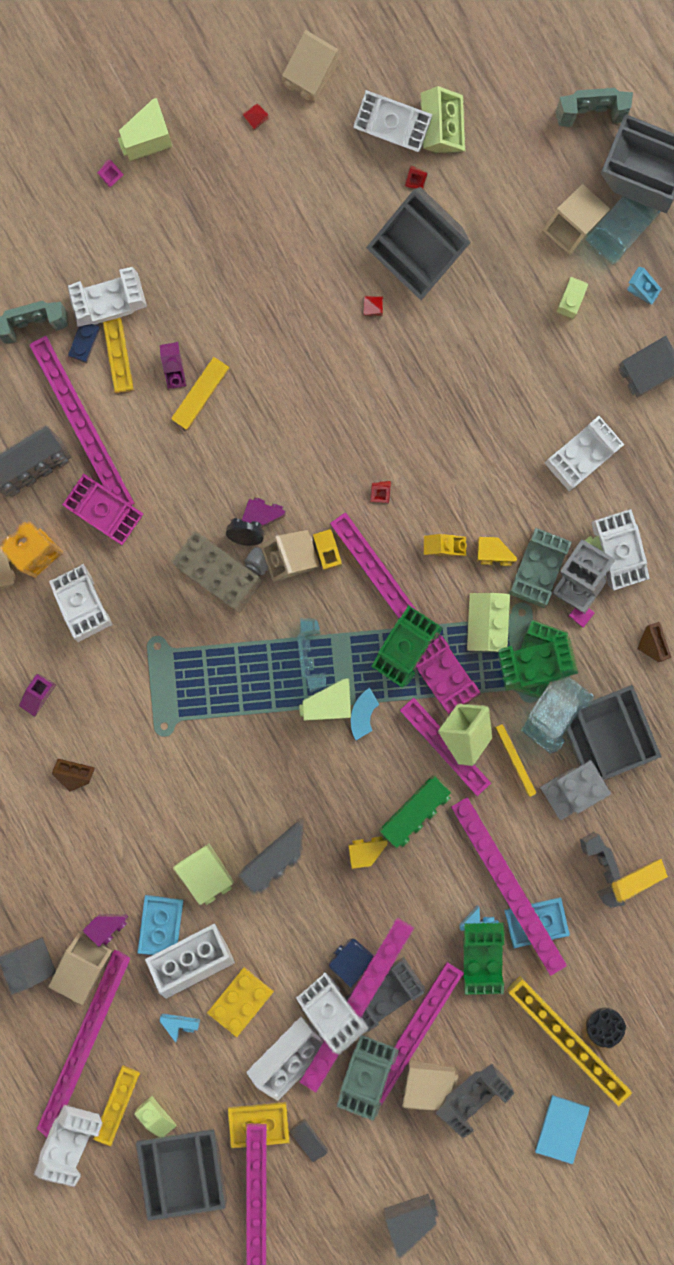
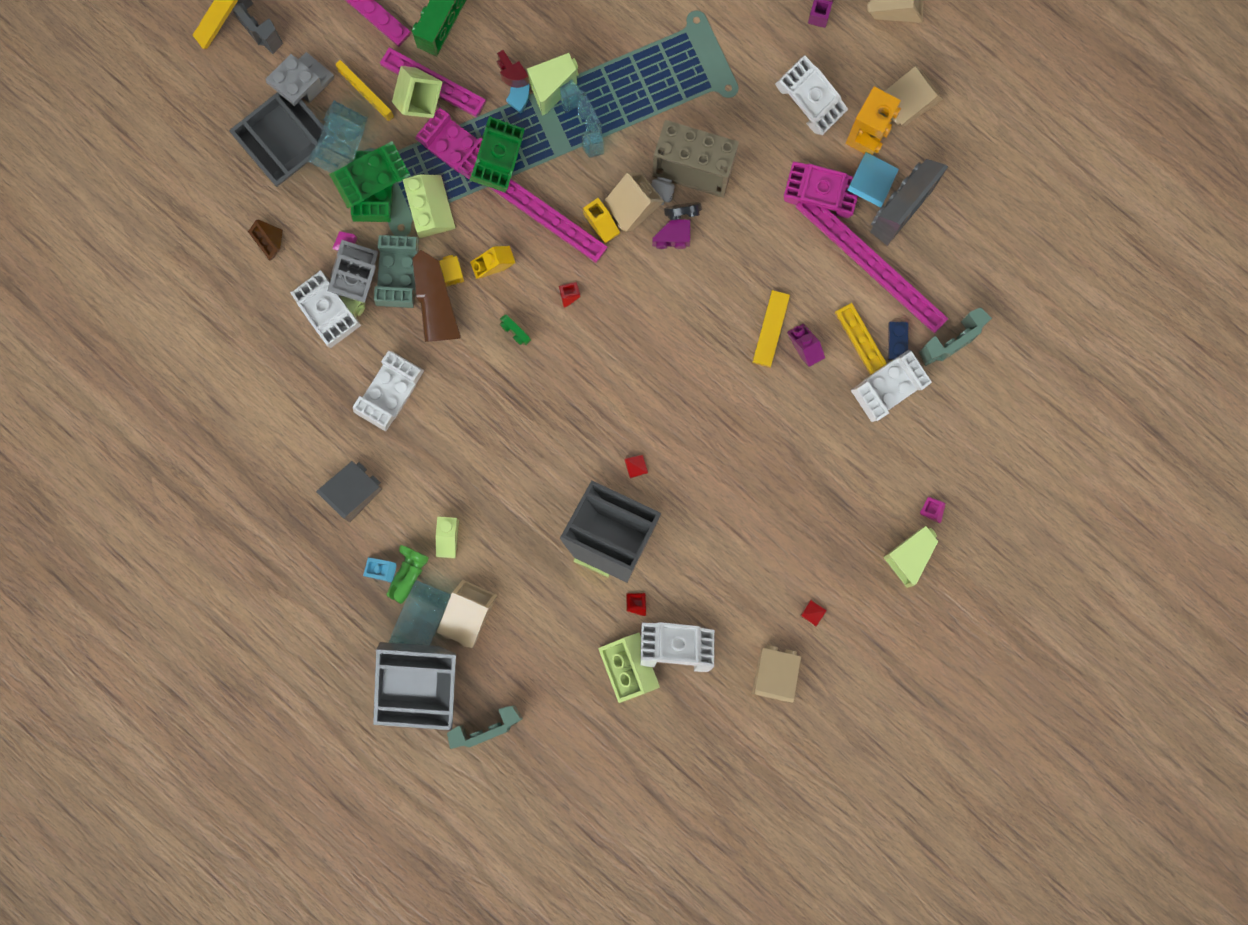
camera: 160 degrees right, 5 degrees down
(51, 500) = (873, 179): none -> medium azure tile
(364, 723) = (512, 74): none -> dark red brick
(442, 465) = (519, 335): none -> green plate
(514, 515) = (432, 293): none -> reddish brown panel
(620, 274) = (407, 574): none -> bright green piece

